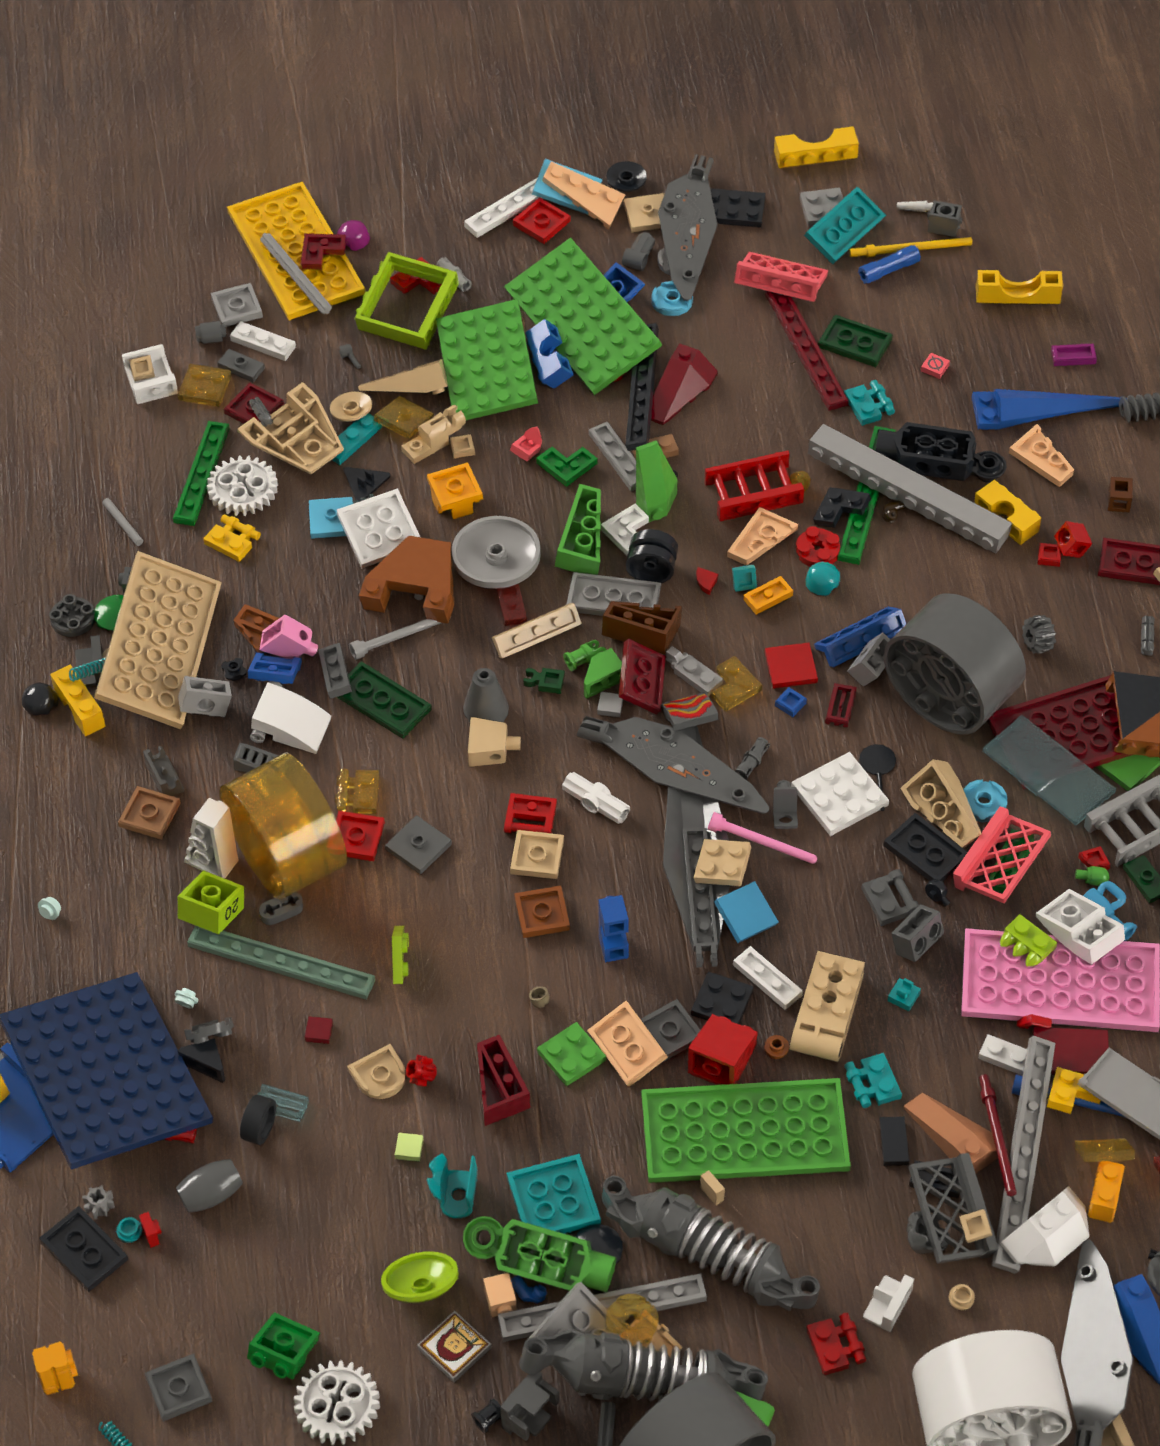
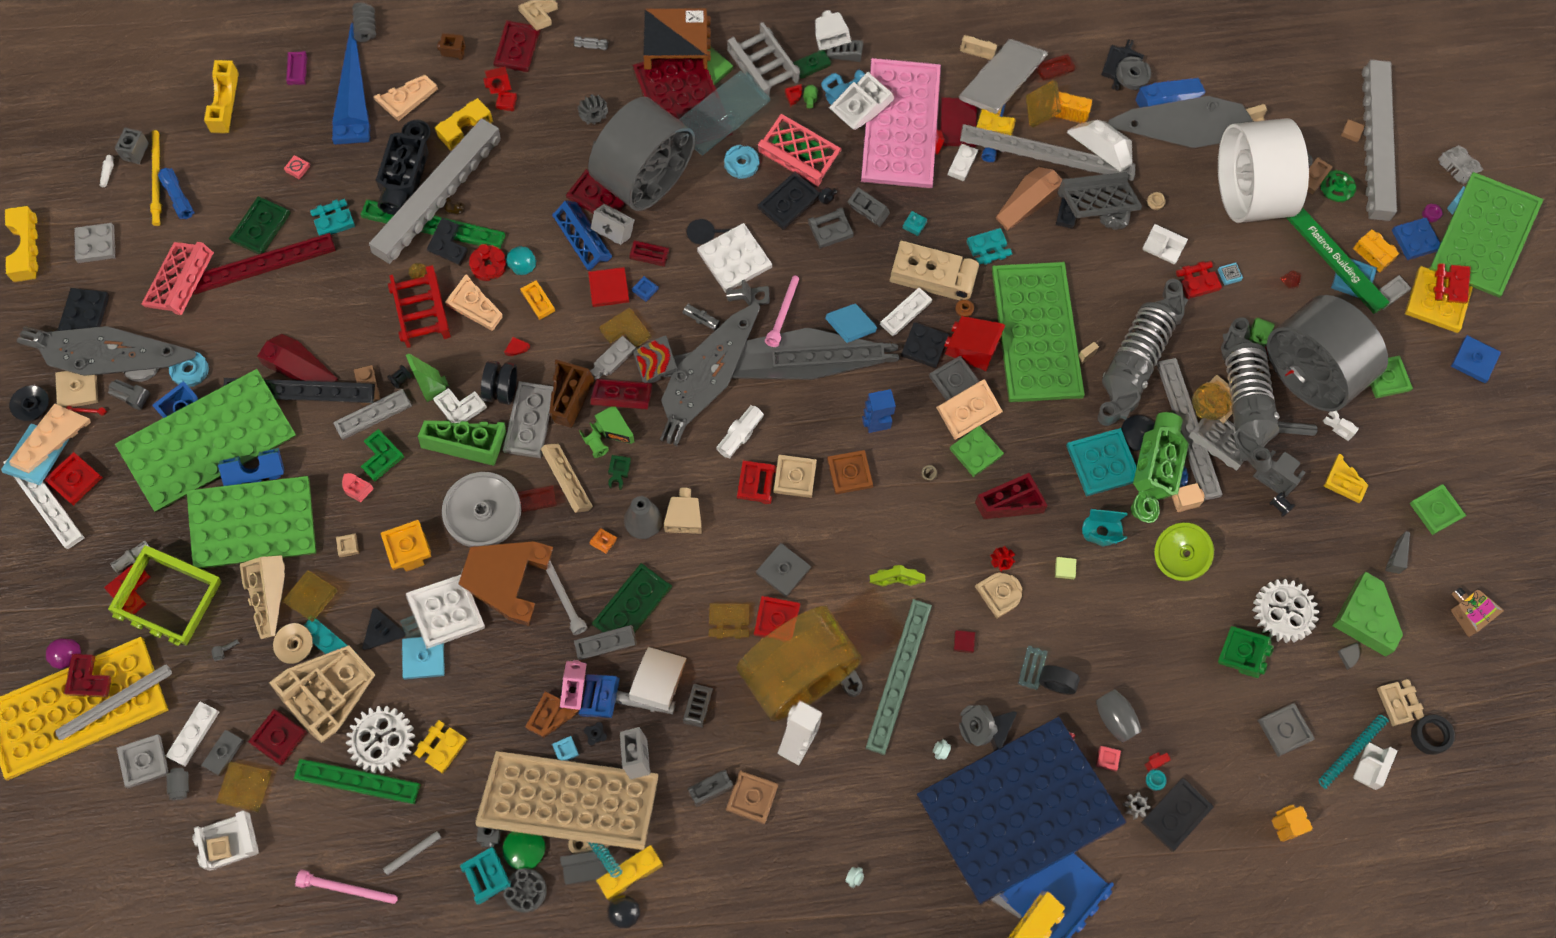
camera: 95 degrees left, 15 degrees up
(90, 579) = (491, 872): none -> teal plate
(104, 438) = (305, 879): none -> bright pink piece
(161, 1180) = (1108, 758): none -> coral tile
(210, 902) = (853, 732): lime brick -> none
(219, 645) = (565, 749): none -> medium azure tile
(261, 411) = (294, 724): dark grey axle -> none
(434, 434) = (336, 569): tan plate -> none
(454, 1346) = (1228, 530): tile -> none
(459, 668) = (603, 540): none -> orange tile
(609, 704) = (643, 422): light grey tile -> none
(621, 235) = (102, 411): none -> red hinge
(722, 862) = (811, 335): tan plate -> none
(744, 578) = (519, 316): teal tile -> none
(845, 225) = (125, 223): teal plate -> none
(848, 1387) = (1230, 274): none -> tile
(894, 1141) = (1037, 236): black tile -> none
(942, 800) = (743, 187): tan wedge -> none
(976, 1226) = (1115, 181): tan tile -> none
(989, 1098) = (1000, 173): dark red bar -> none
(1028, 940) = (872, 137): lime plate -> none

